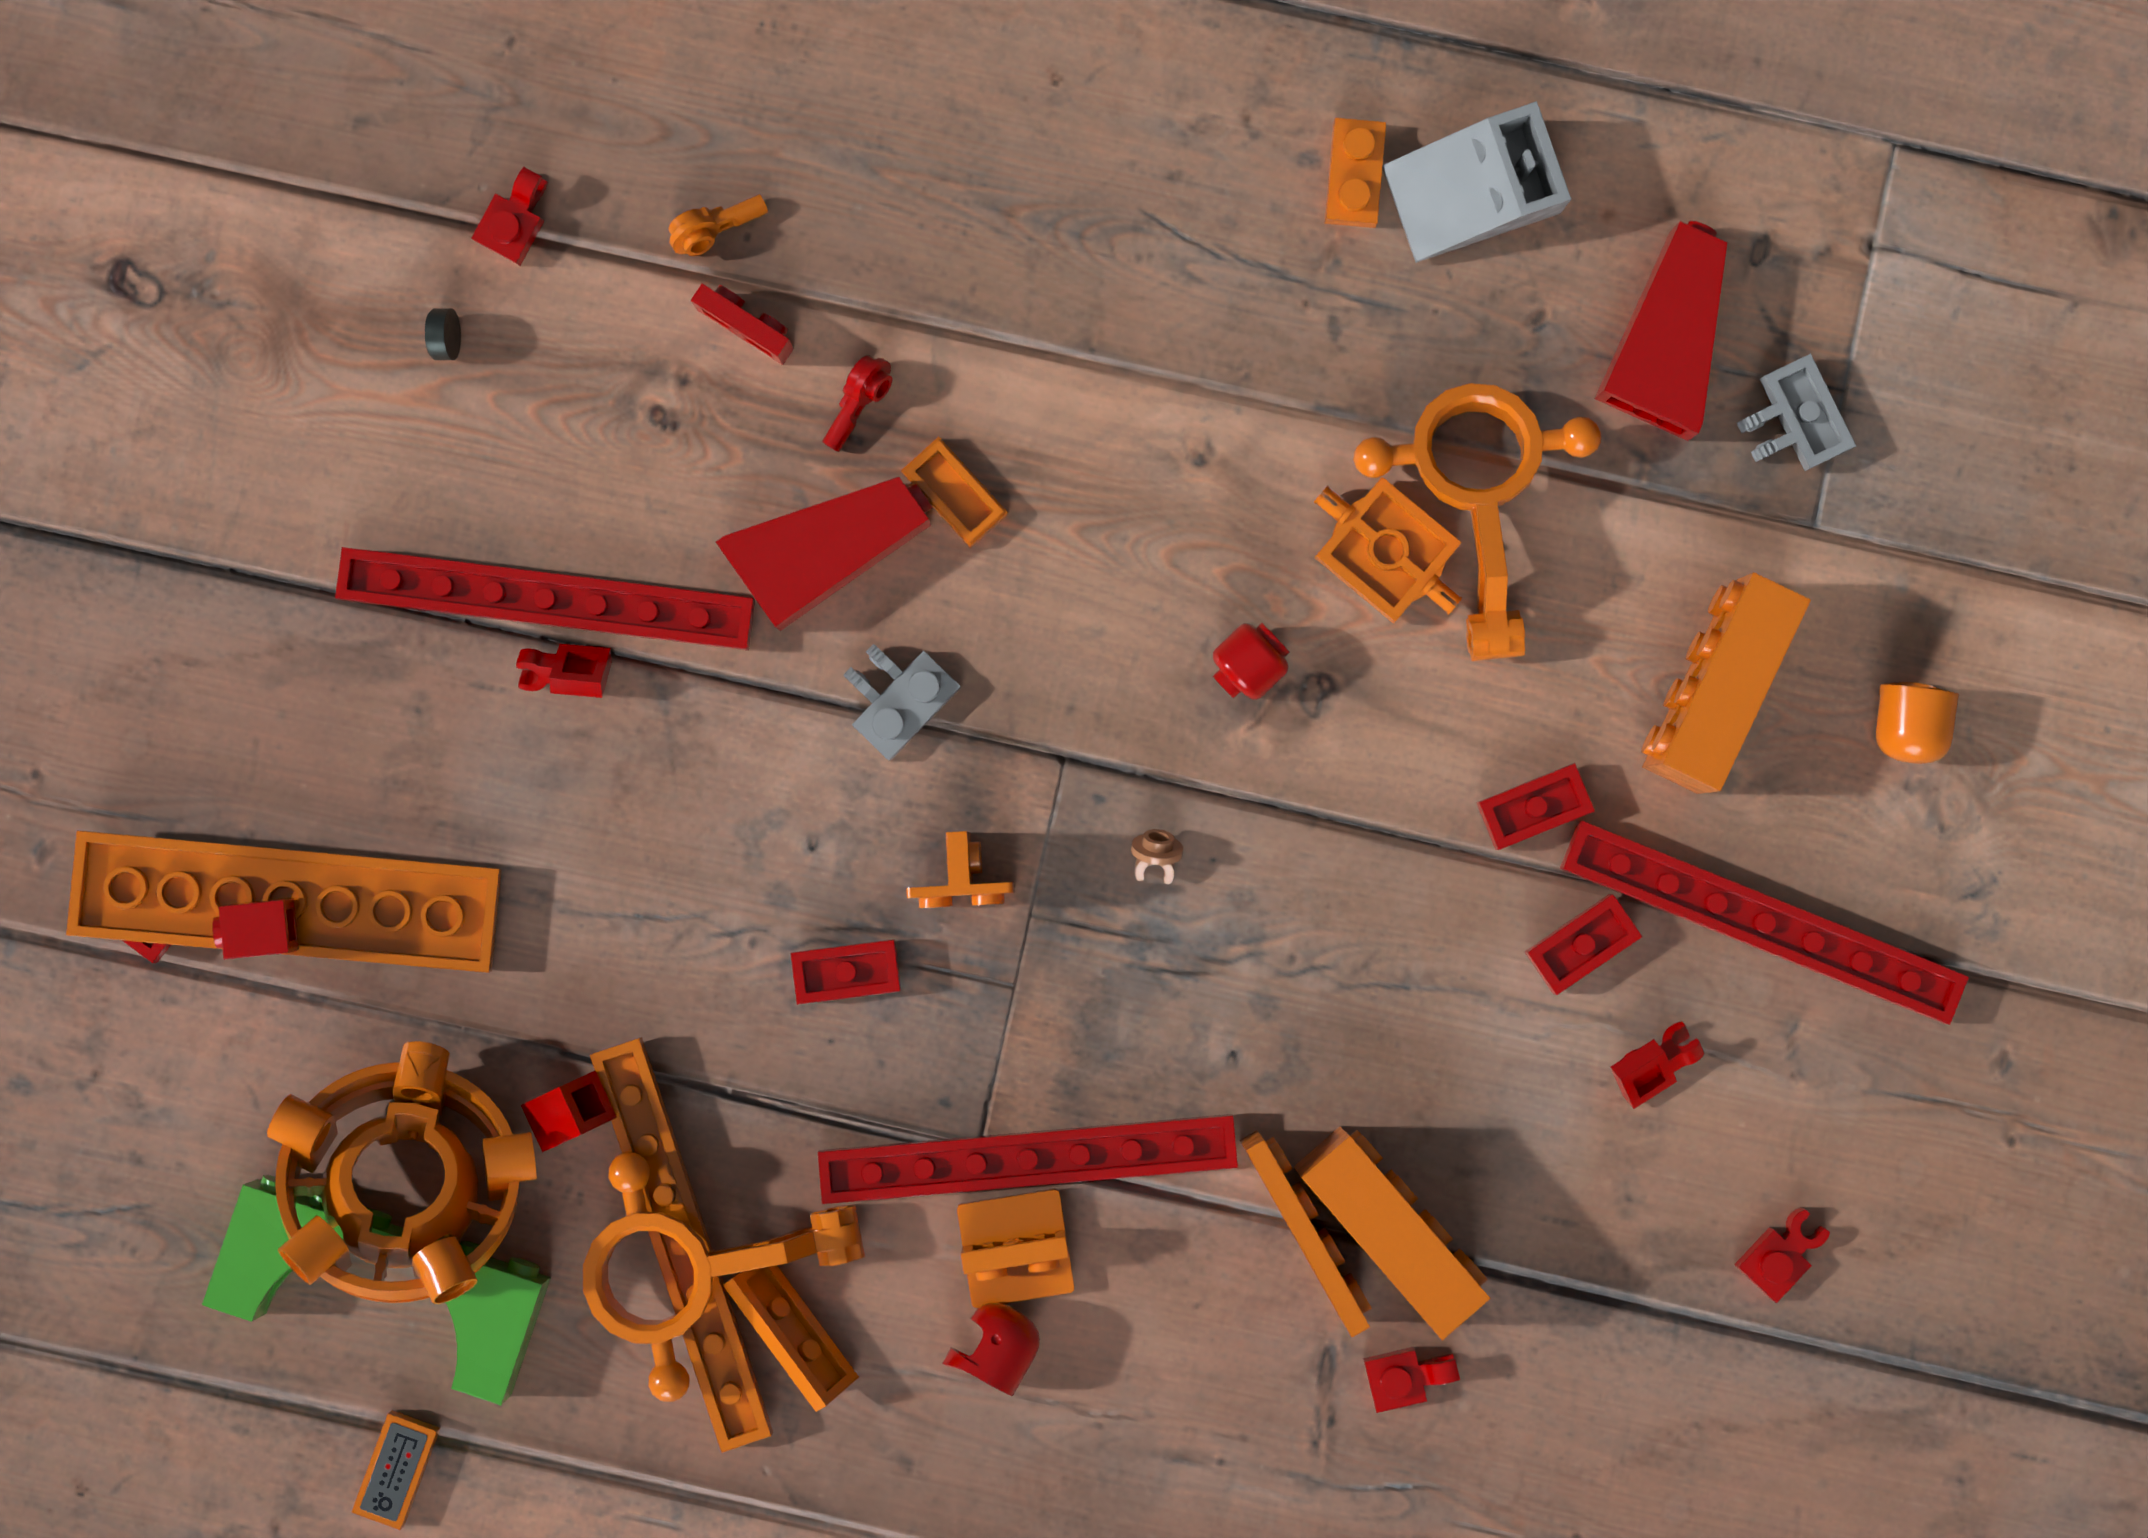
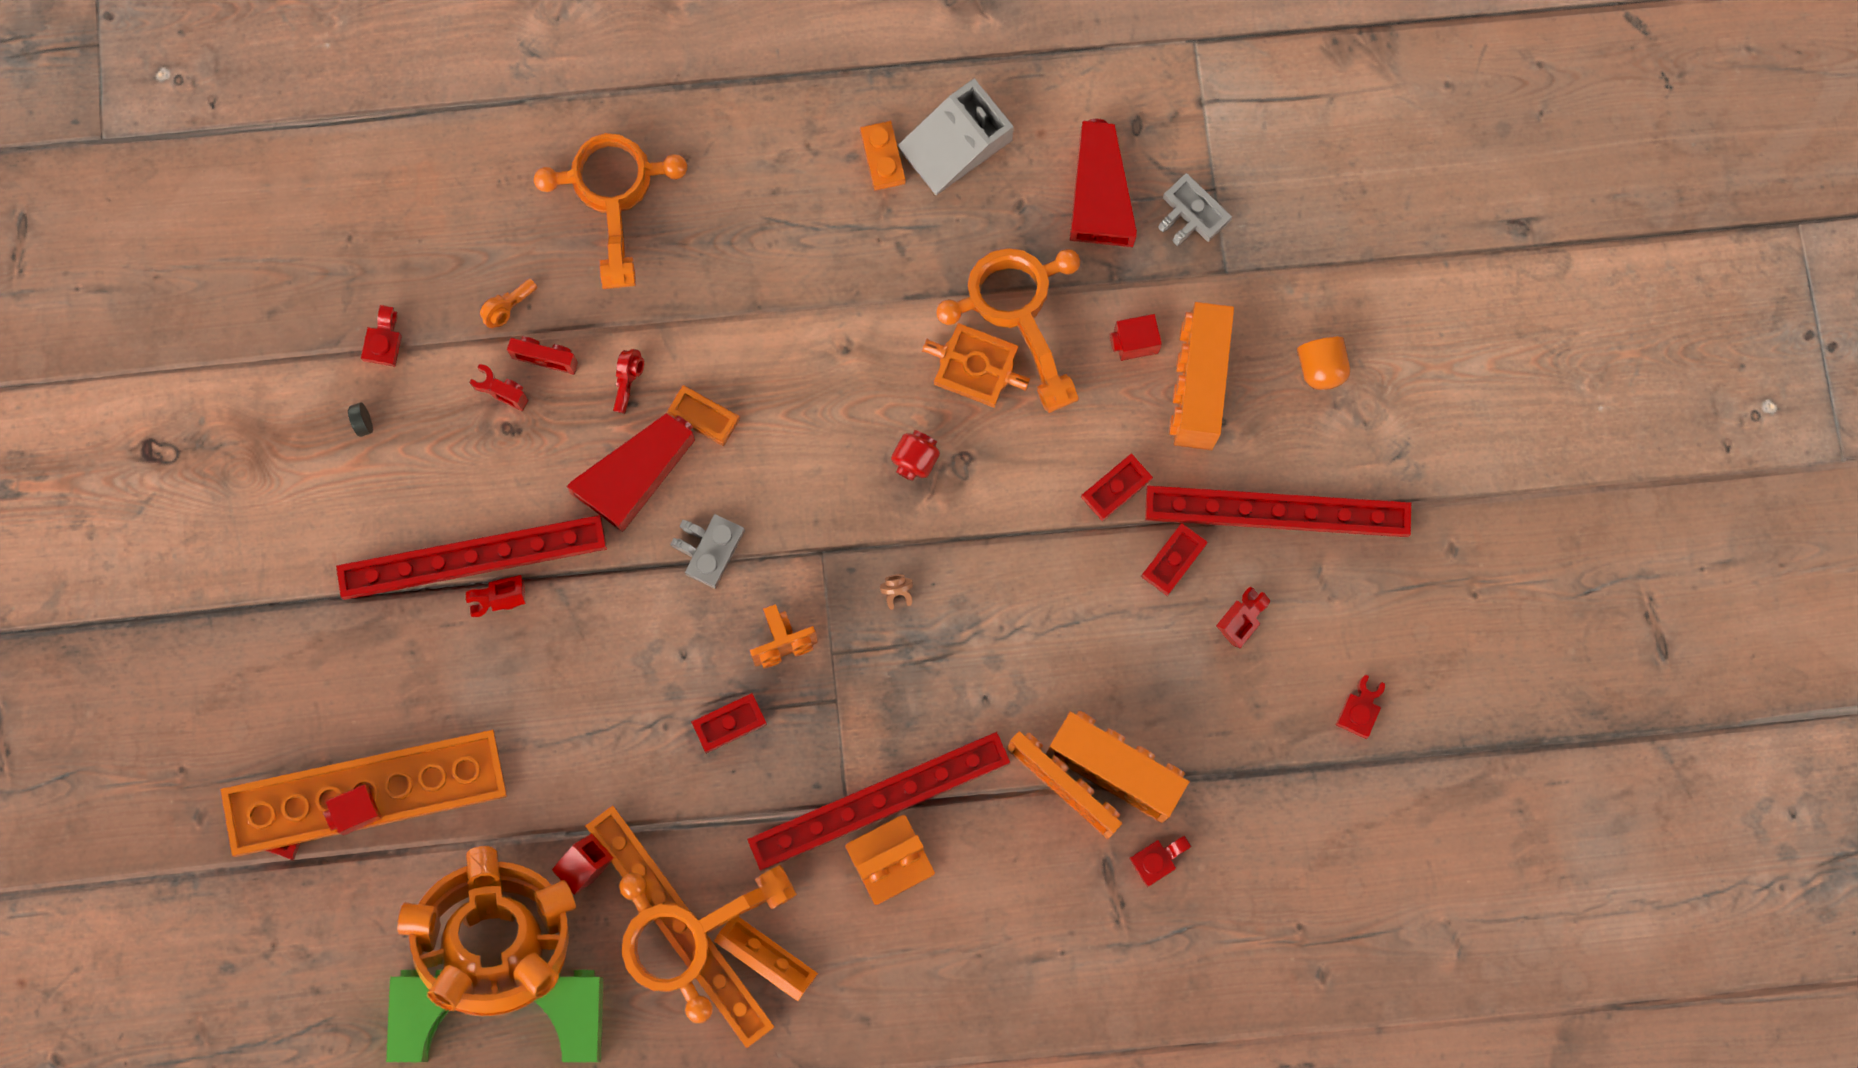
camera: 20 degrees left, 10 degrees down
(673, 362) = (506, 392): none -> red plate
(896, 231) = (618, 269): none -> orange piece
(1004, 1351) = (902, 923): red helmet -> none
(1644, 587) = (1136, 337): none -> red brick

